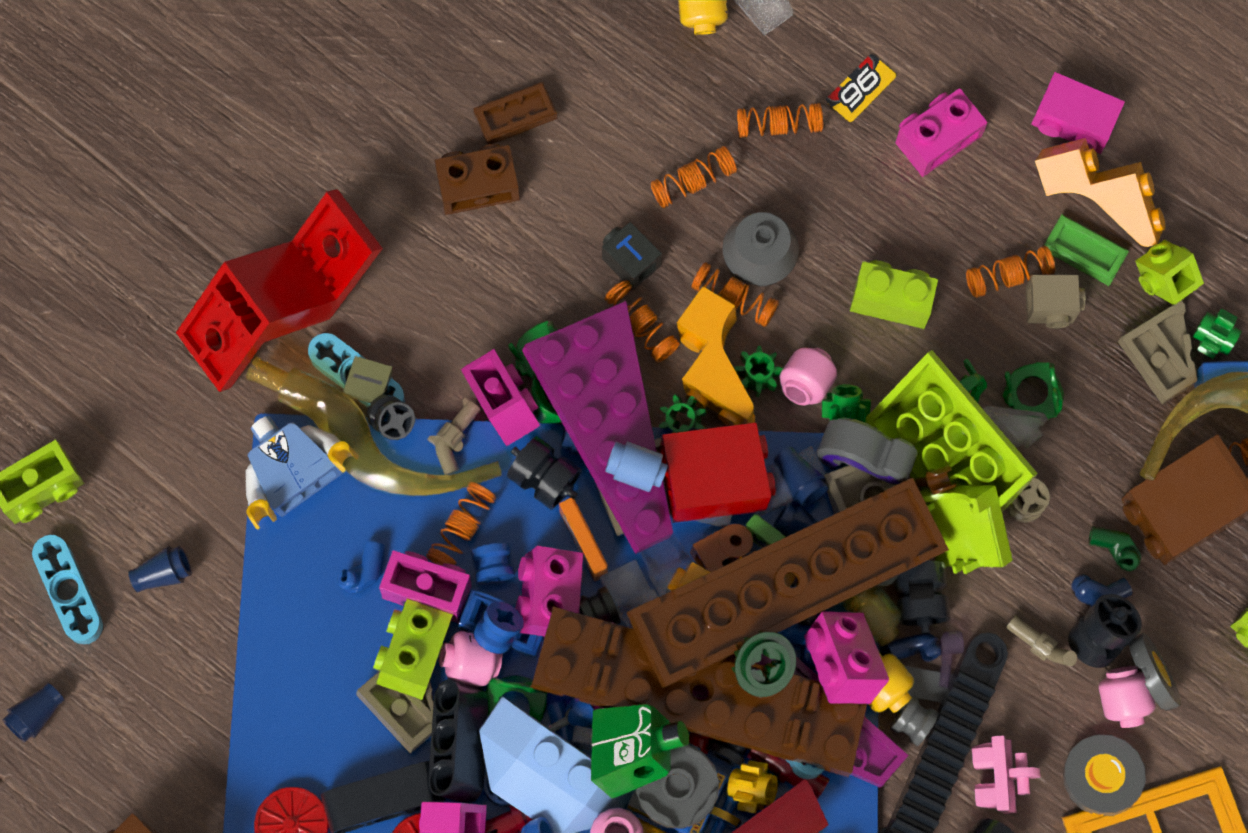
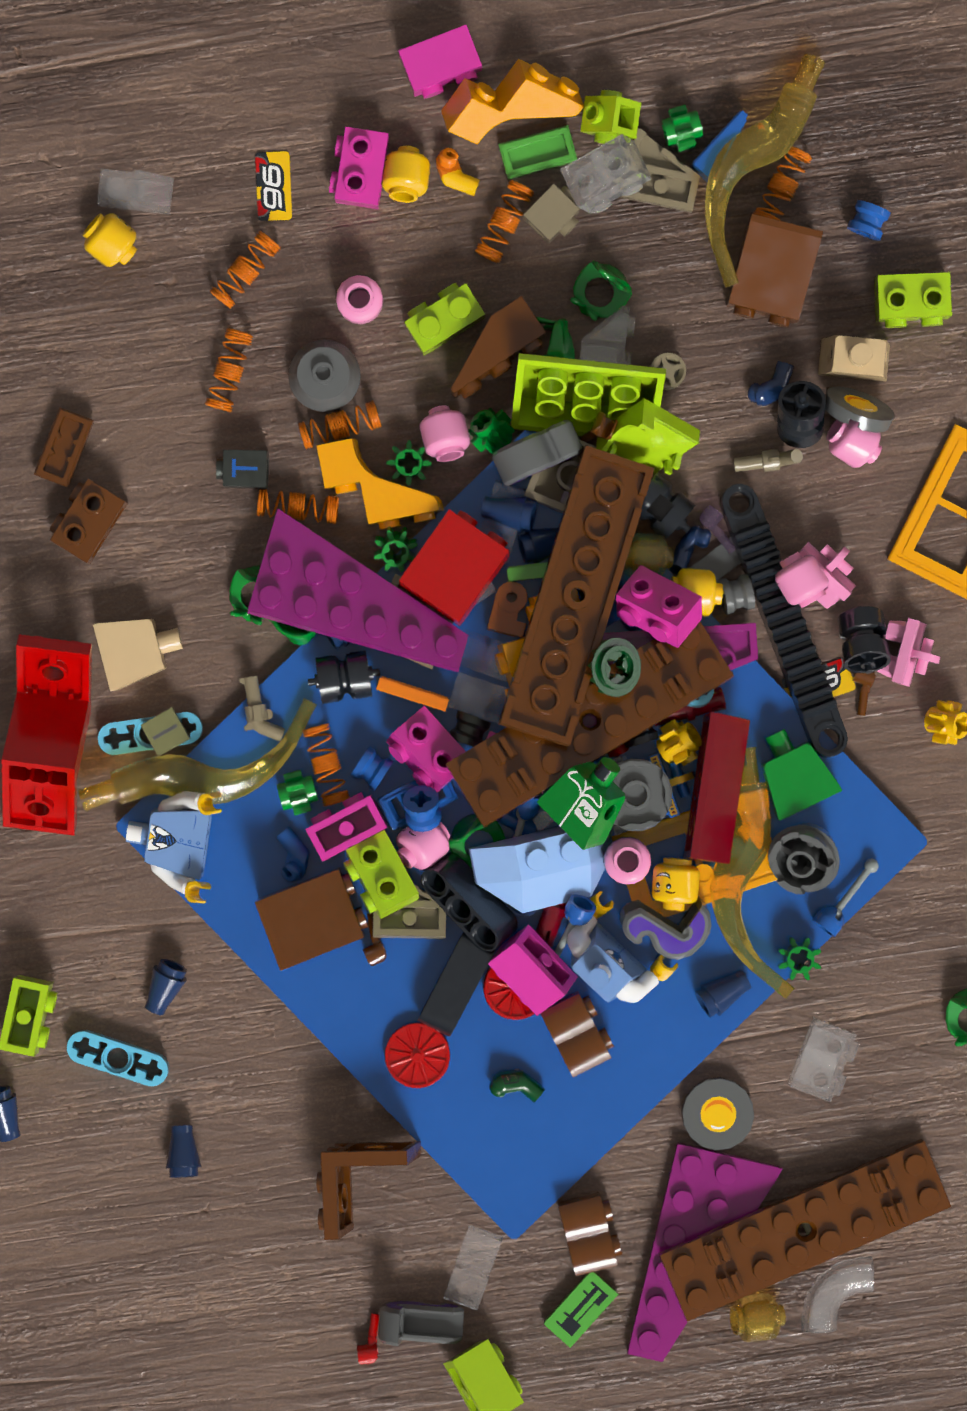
camera: 40 degrees left, 15 degrees up
(323, 626) = (311, 918): none -> reddish brown slope
(345, 709) = (376, 952): none -> reddish brown hand
(400, 418) = (214, 735): black wheel -> none
(408, 301) = (133, 650): none -> tan torso
(417, 523) = (297, 792): none -> green gear
(500, 398) = (264, 656): dark pink brick -> none
(636, 466) = (404, 620): medium blue brick -> none
(844, 218) = (359, 299): none -> bright pink head
(903, 344) = (503, 338): none -> reddish brown slope
(969, 167) = (405, 174): none -> yellow head
(980, 755) = (801, 579): none -> bright pink head
(1004, 203) = (452, 174): none -> arm
(1104, 775) = (888, 506): dark grey tile -> none
(1119, 545) = (754, 340): dark green arm -> none
(1125, 307) = (606, 174): none -> clear brick
(1190, 632) = (854, 358): none -> tan torso

